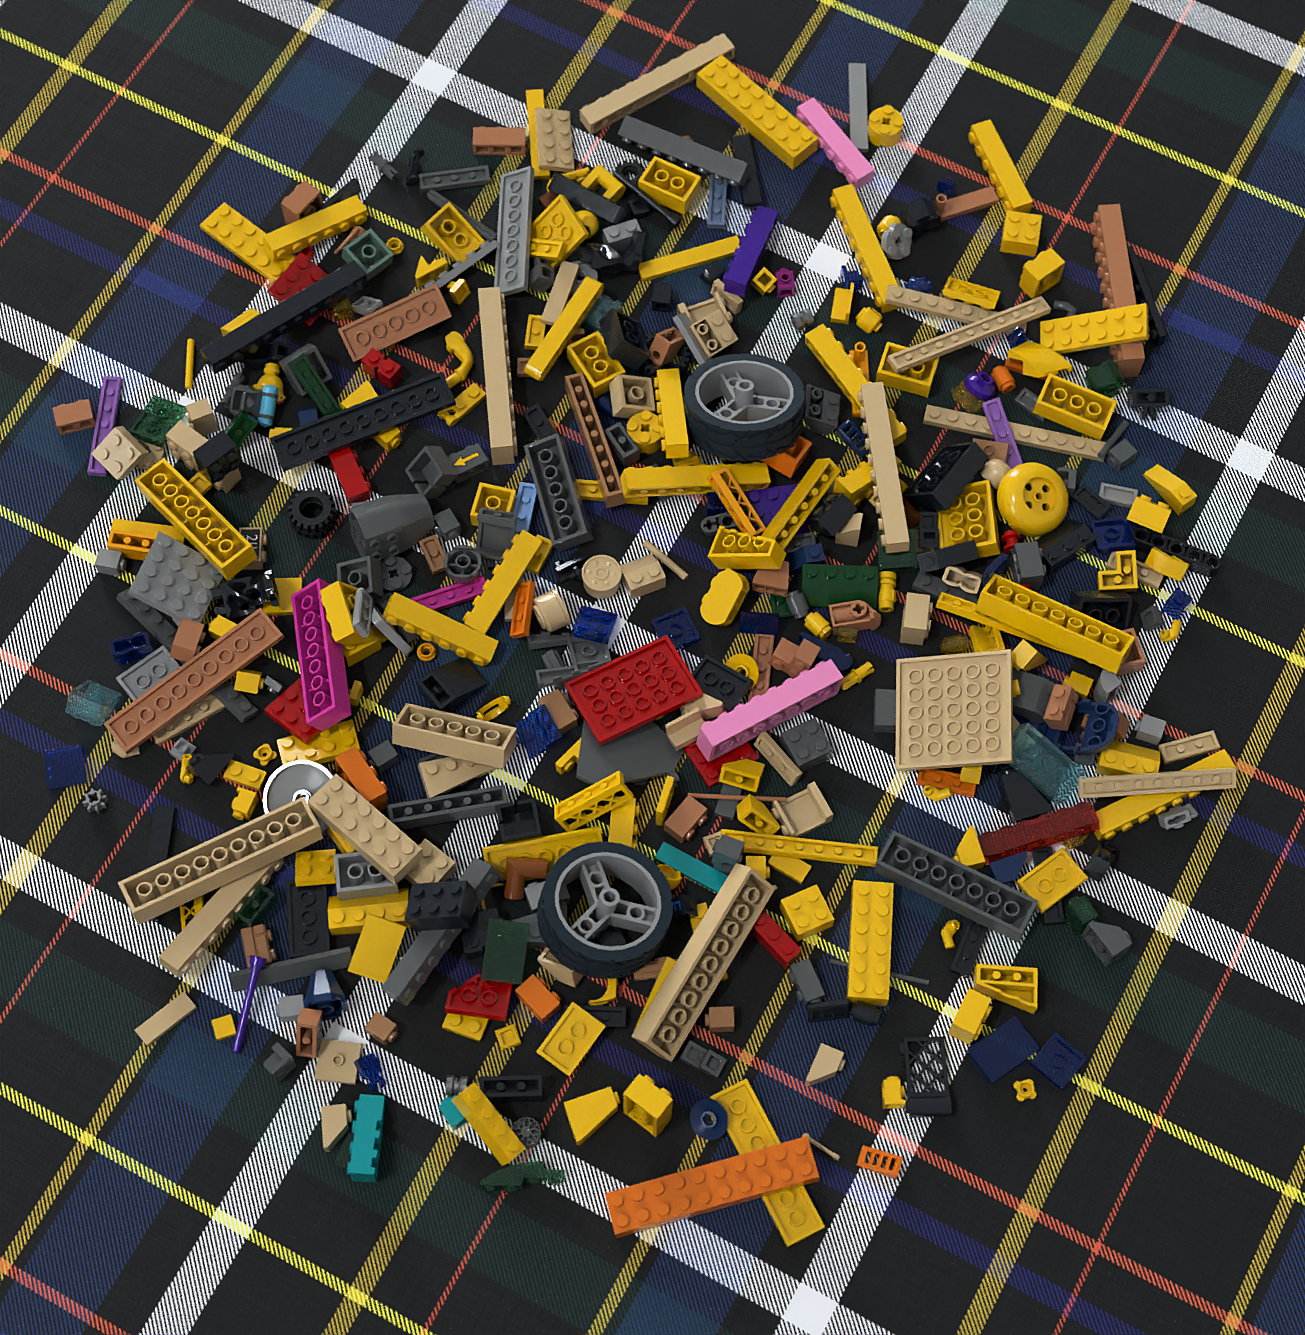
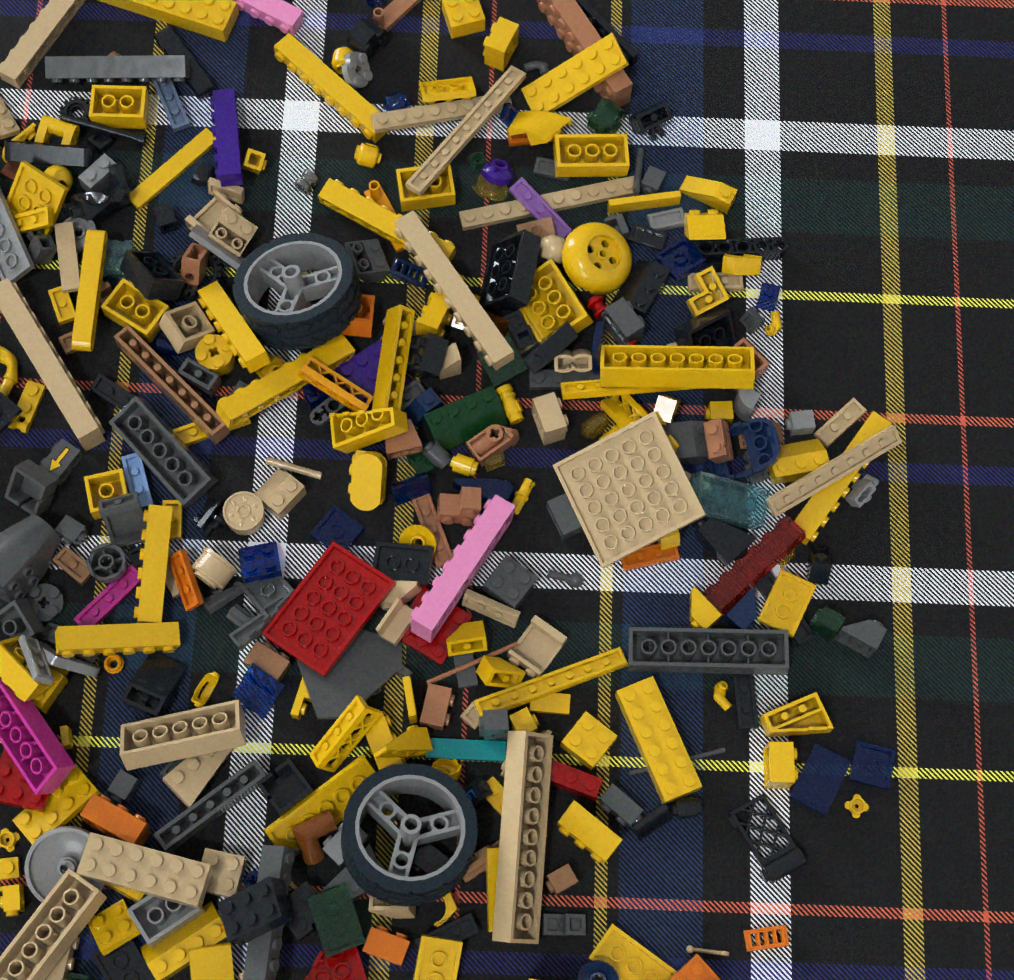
camera: 30 degrees left, 5 degrees up
(644, 836) = (411, 743): none -> yellow slope
(765, 990) = (588, 832): none -> yellow slope
(785, 283) = (274, 154): magenta brick -> none
(825, 1065) = (674, 873): tan slope -> none
(842, 305) = (336, 151): yellow panel -> none
(851, 277) = (331, 124): clear blue panel -> none
(867, 770) = (575, 579): none -> dark grey bar
(892, 1093) = (746, 869): yellow brick -> none
(935, 794) = (643, 572): yellow arm -> none
(966, 363) = (477, 156): none -> clear green plate
(1003, 379) = (515, 157): orange brick -> none
(1104, 469) = (644, 202): none -> yellow tile

